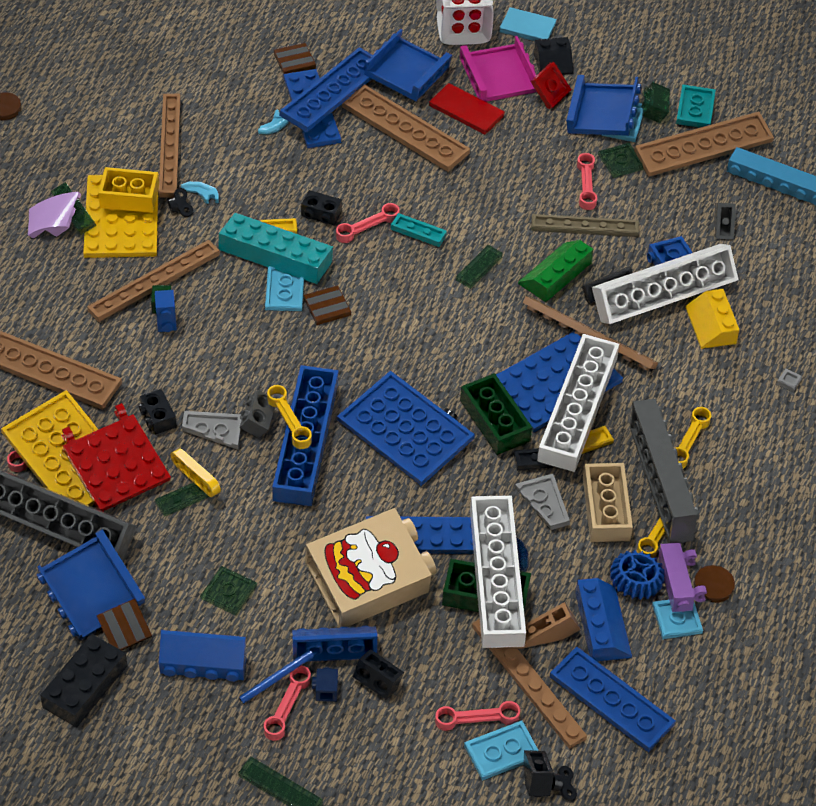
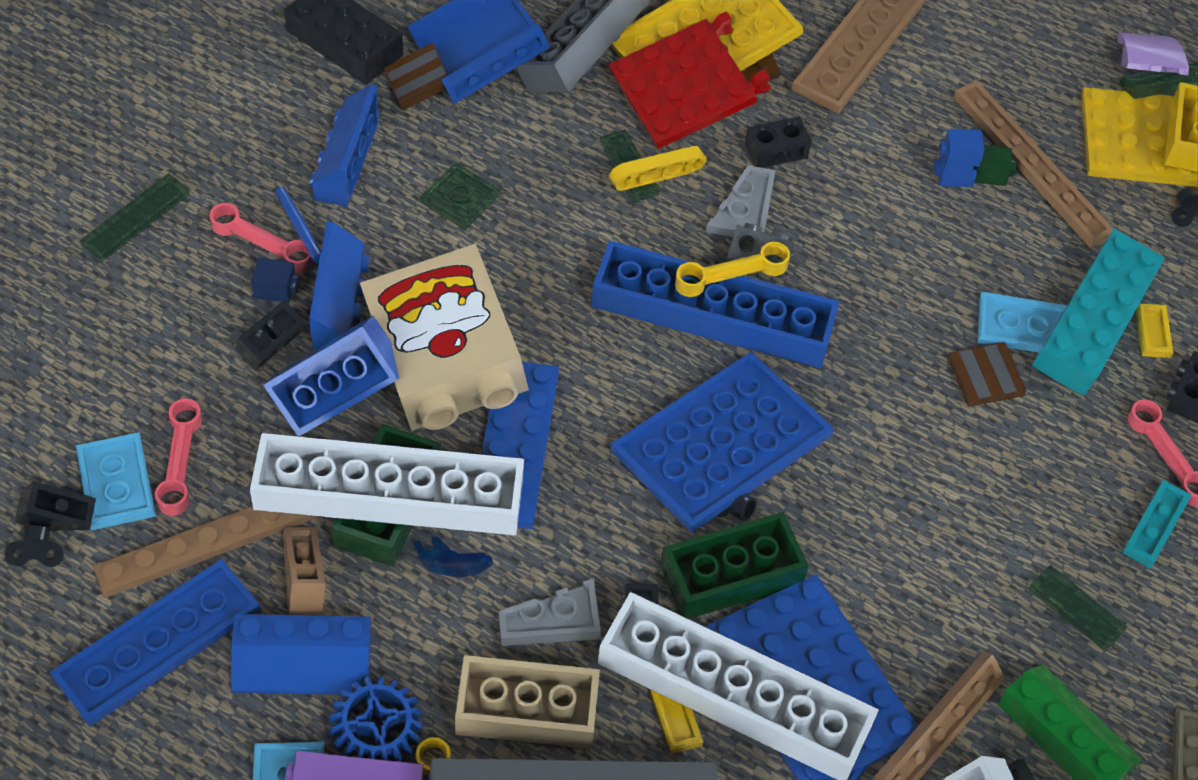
camera: 95 degrees right, 5 degrees up
(412, 622) = (334, 376): none -> blue slope

